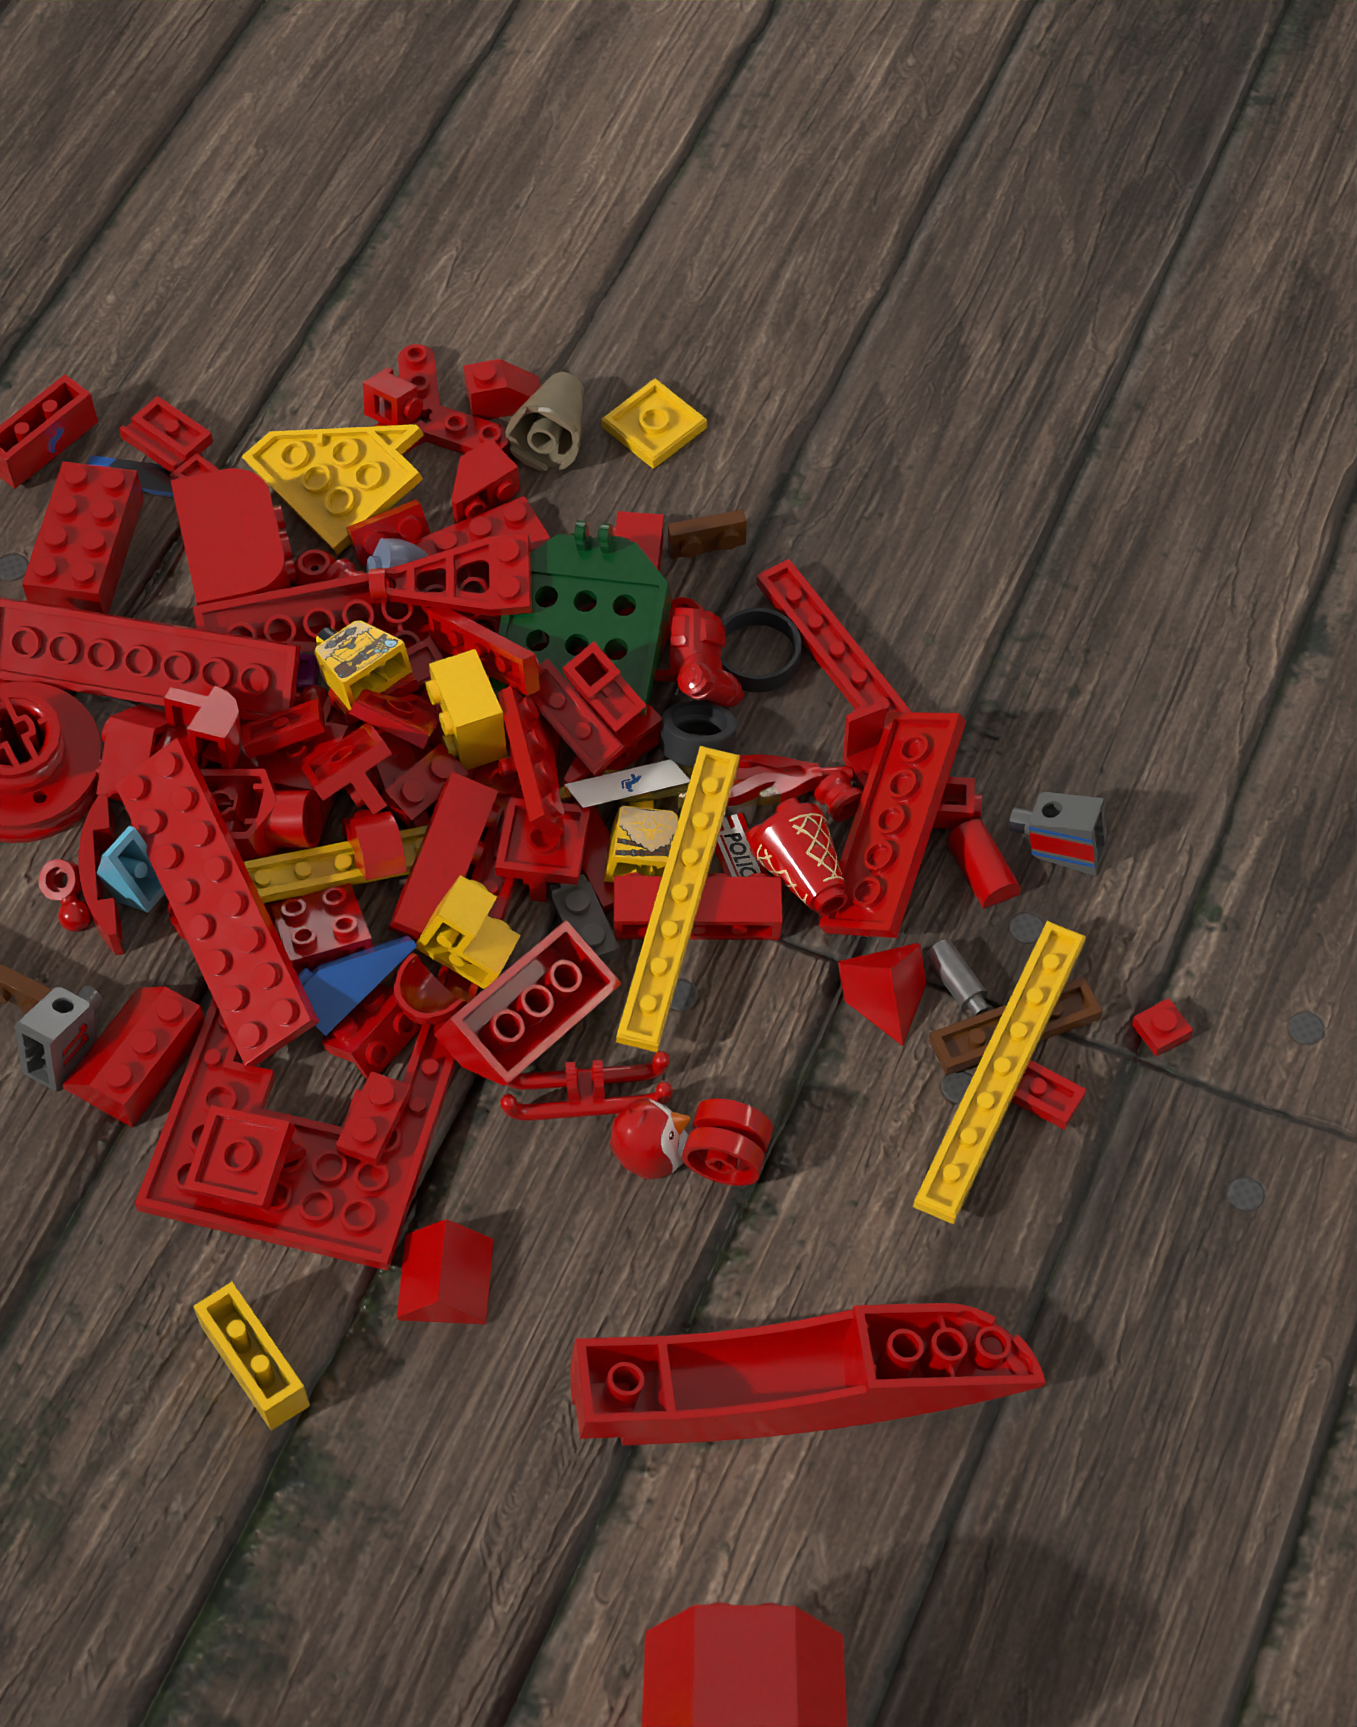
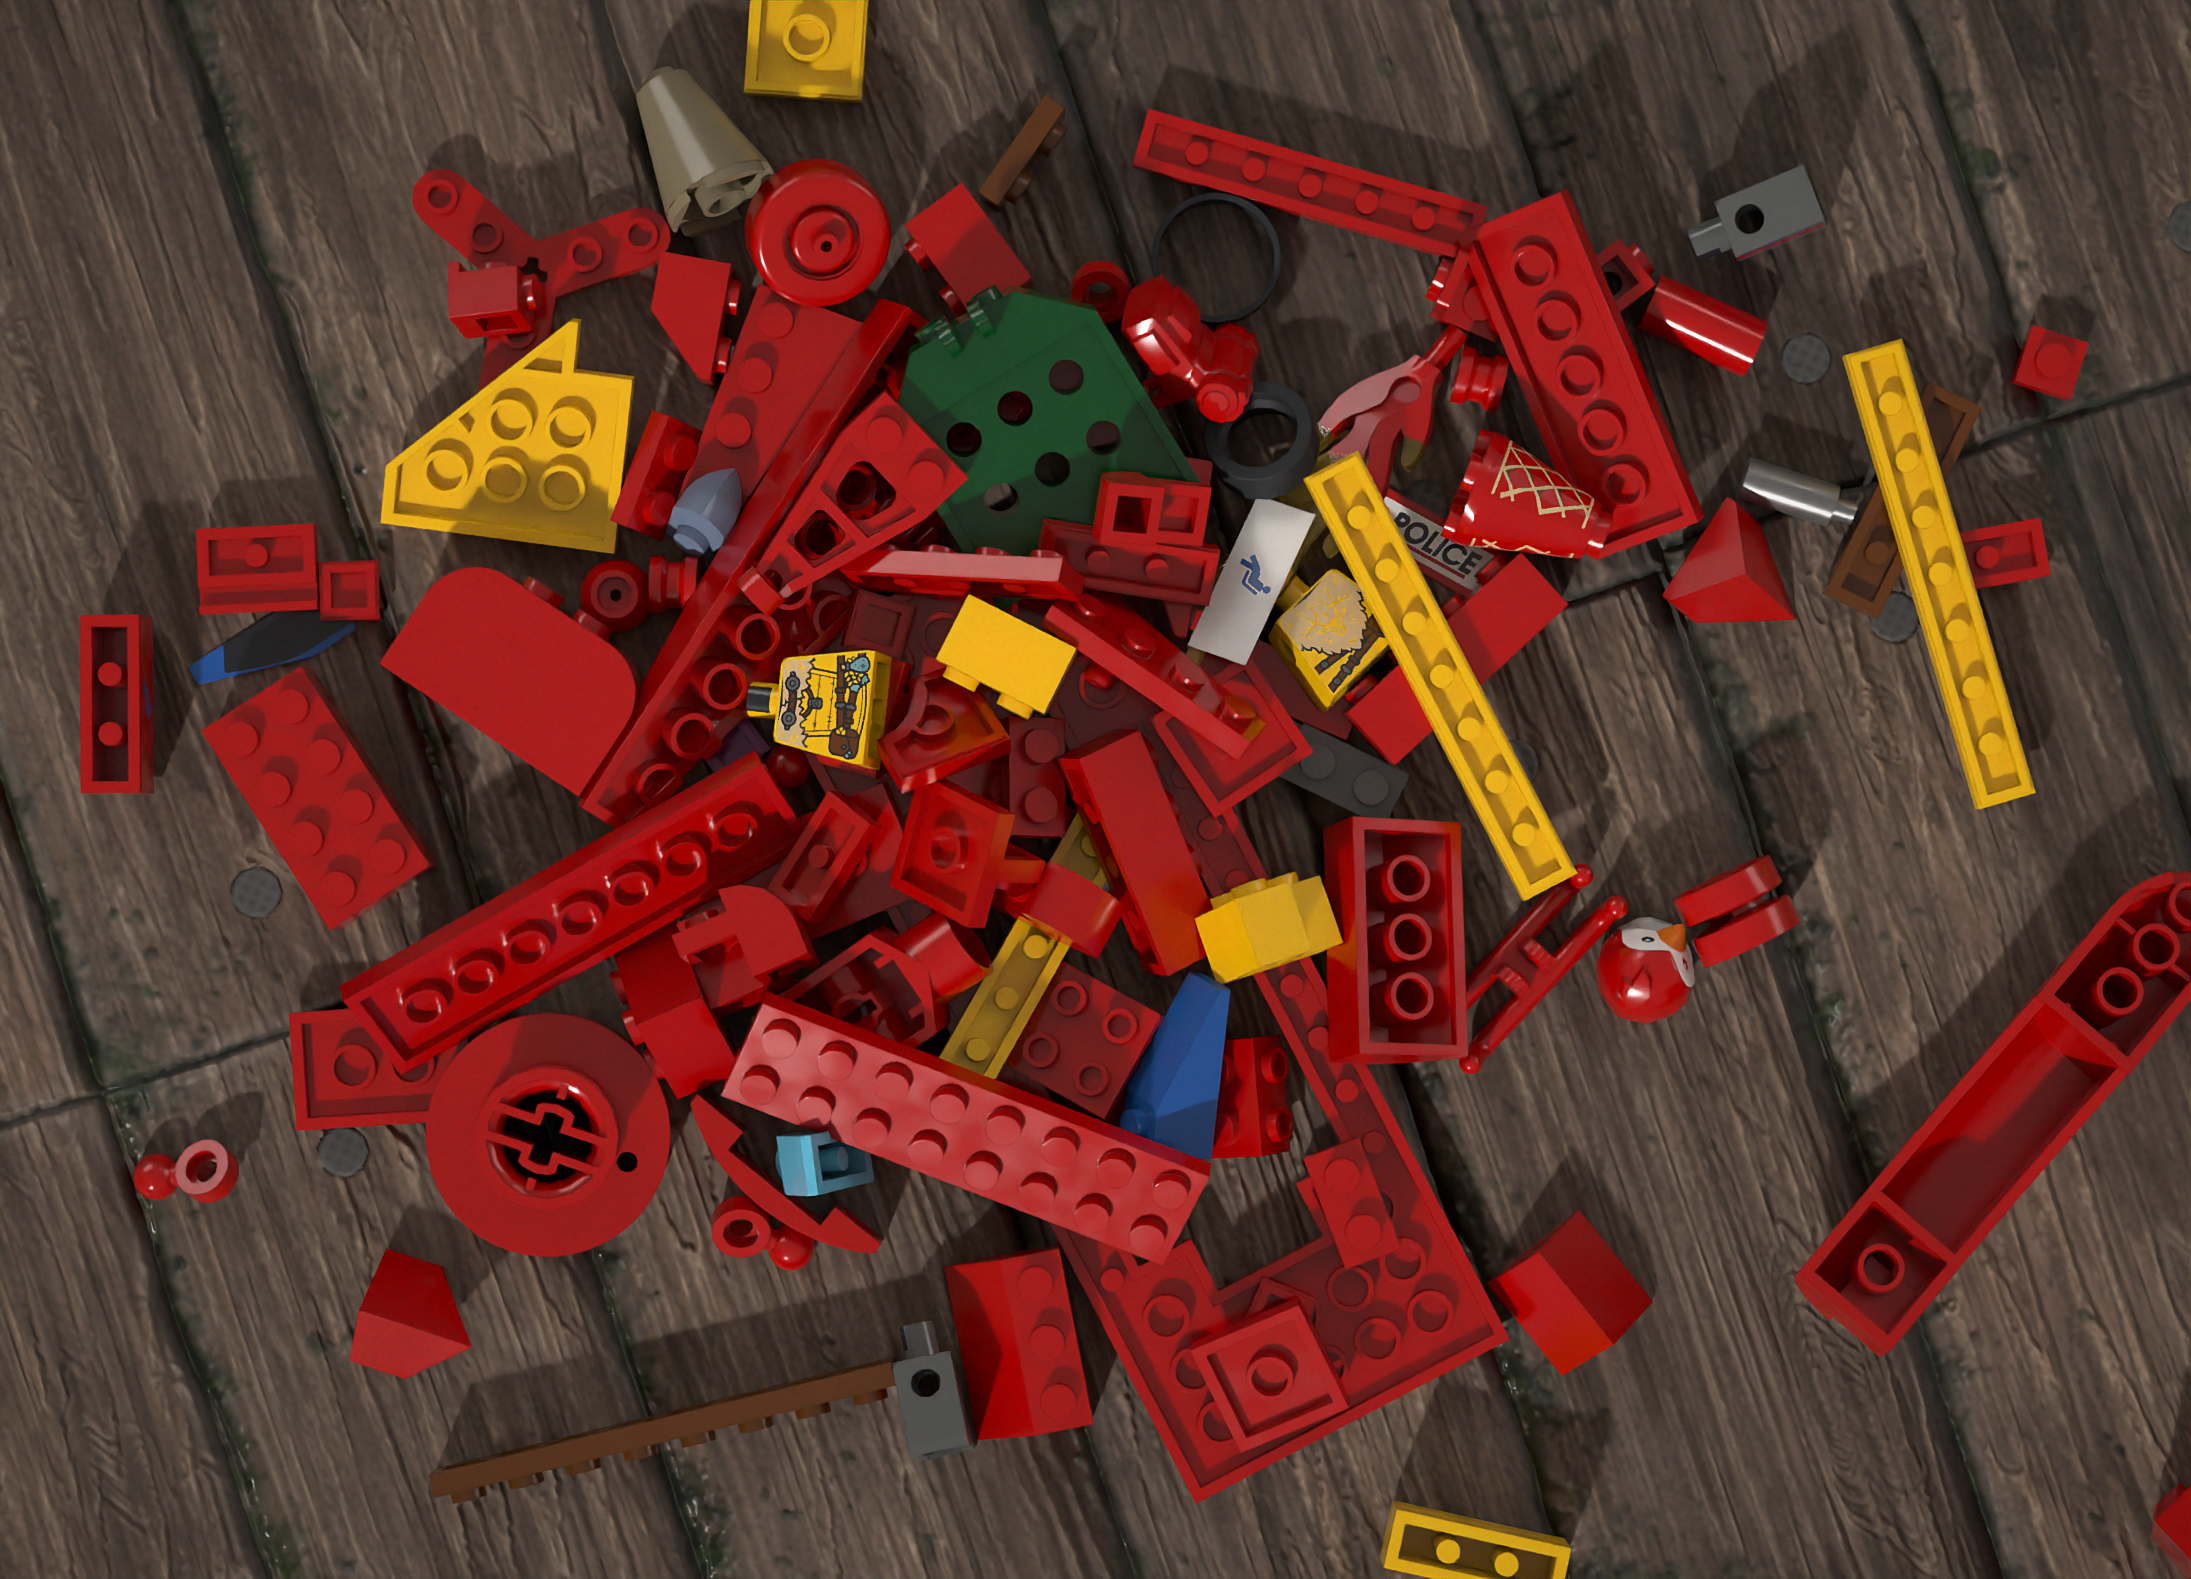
camera: 40 degrees left, 30 degrees up
(422, 995) = (1287, 1028): red helmet -> none
(497, 388) = (592, 156): red slope -> none
(571, 485) = (817, 232): none -> red wheel

